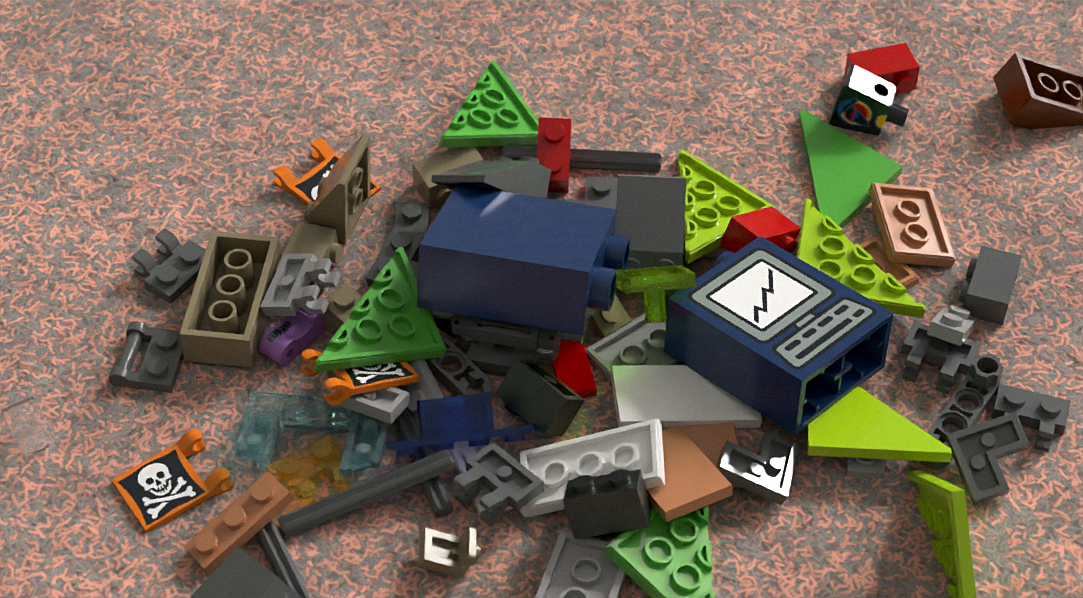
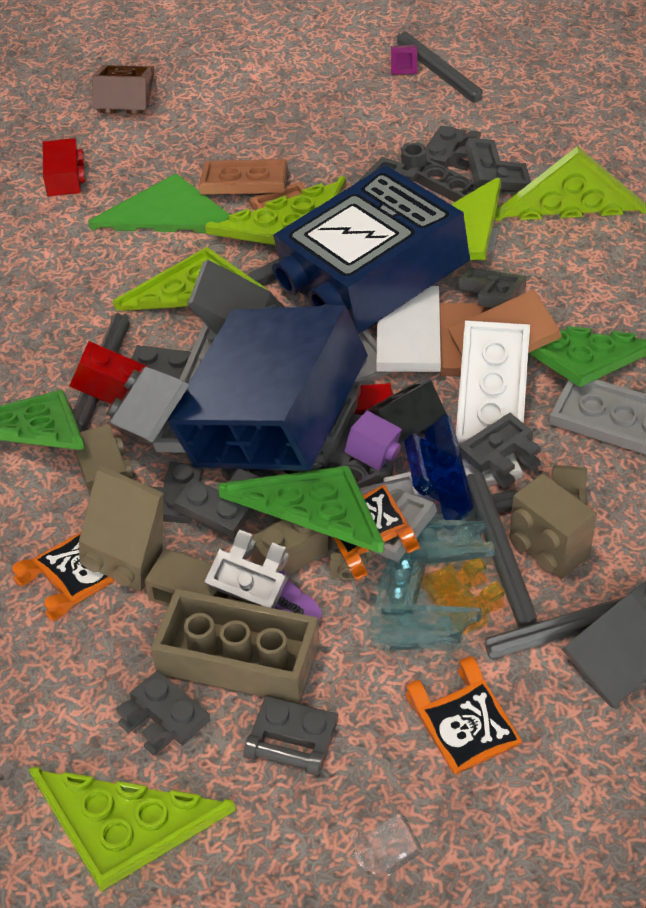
camera: 80 degrees left, 0 degrees up
(69, 259) = (123, 823): none -> lime tile
(239, 522) = (530, 650): nougat plate -> none
(383, 524) = (552, 526): none -> dark tan brick
(486, 366) = (373, 440): none -> medium lavender brick
(607, 503) = (544, 368): pearl dark grey brick -> none
(653, 283) = (328, 286): clear neon green tile -> none
(763, 222) = (248, 252): red brick -> none
(866, 103) = (103, 178): black torso -> none
(952, 325) = (362, 166): light grey plate -> none
(991, 284) = (321, 143): dark grey brick -> none

